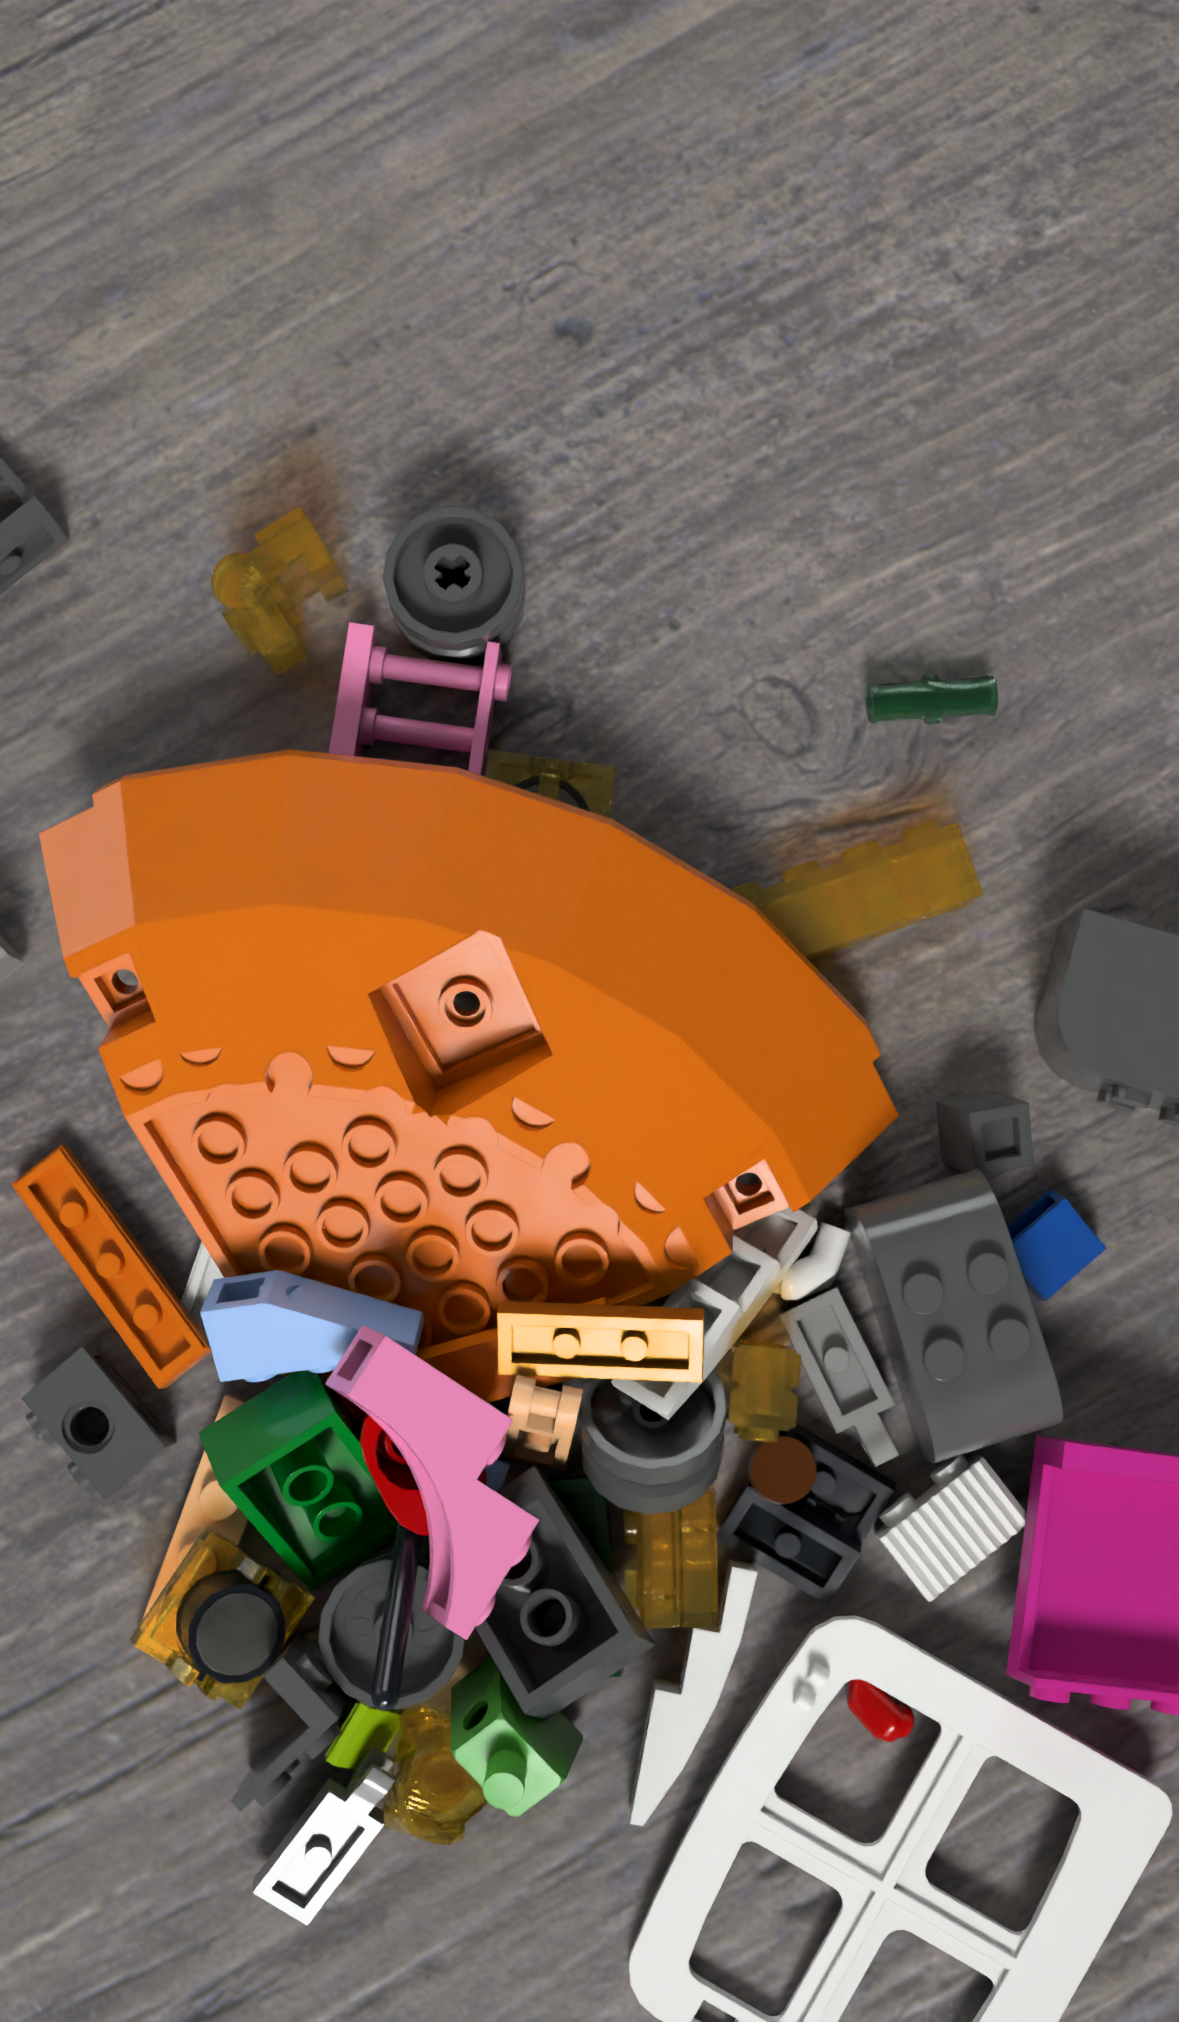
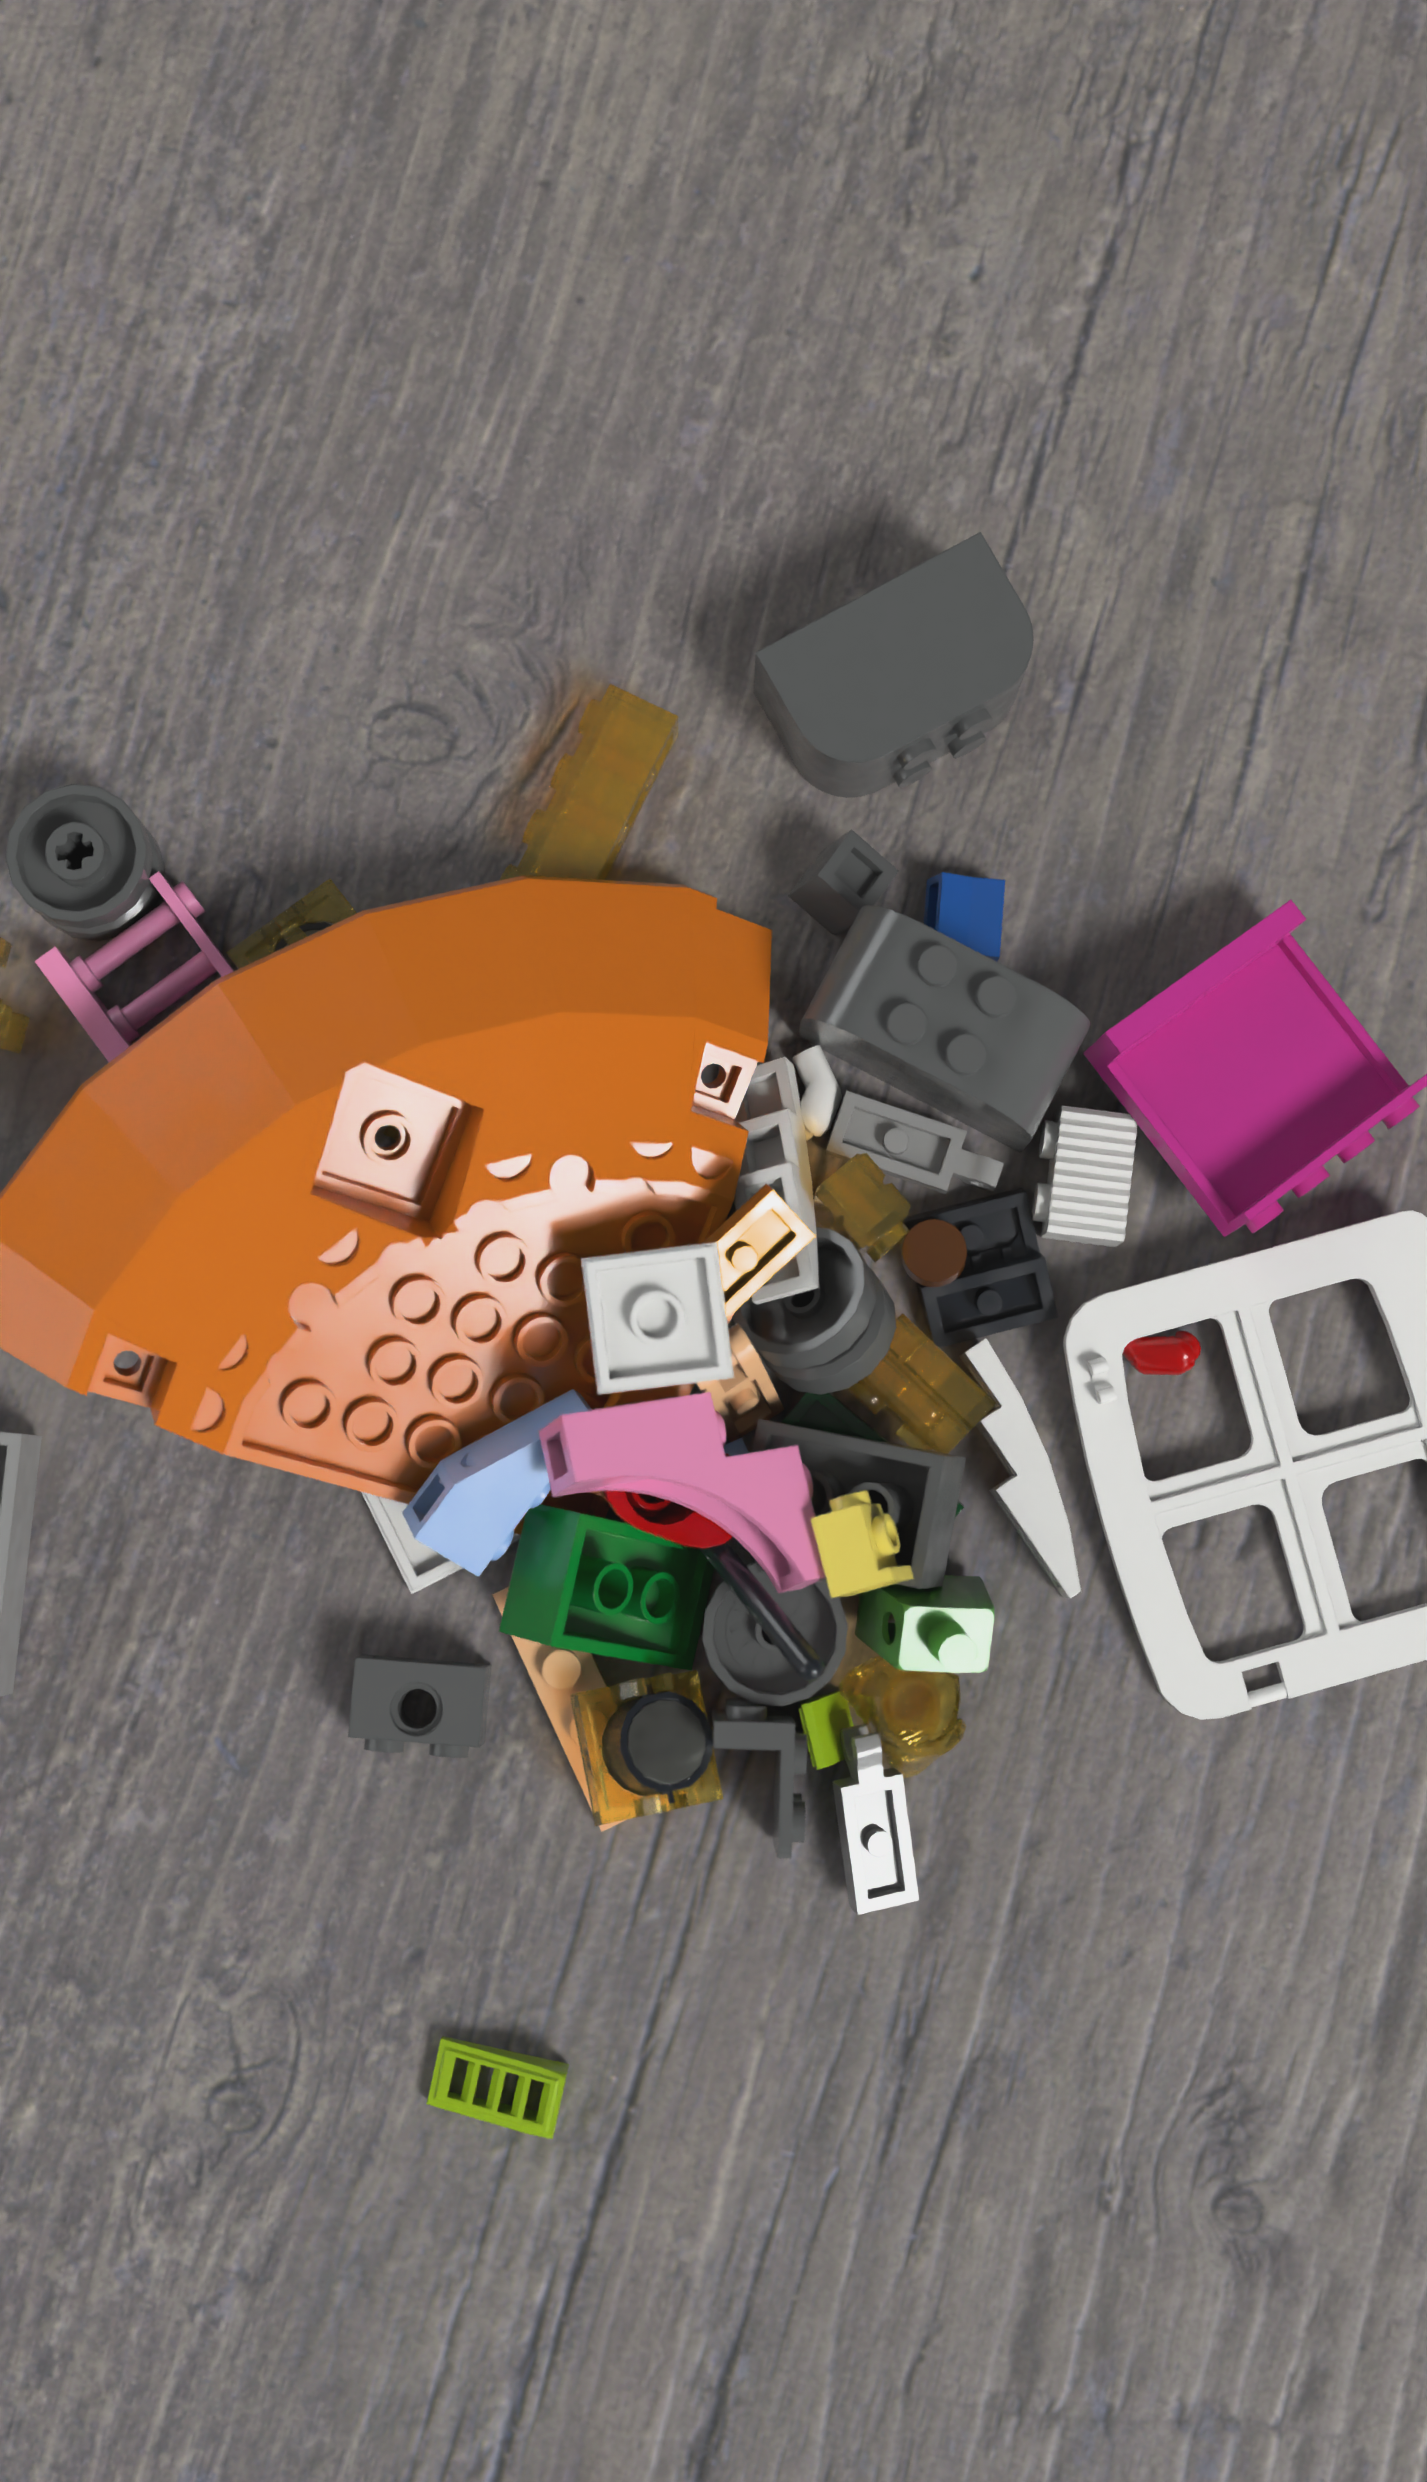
camera: 45 degrees left, 0 degrees up
(113, 1266) = (321, 1584): orange tile -> none
(509, 1639) = (858, 1546): none -> light yellow brick
(527, 1331) = (657, 1318): none -> white tile
(931, 699) = (506, 618): clear green pin -> none

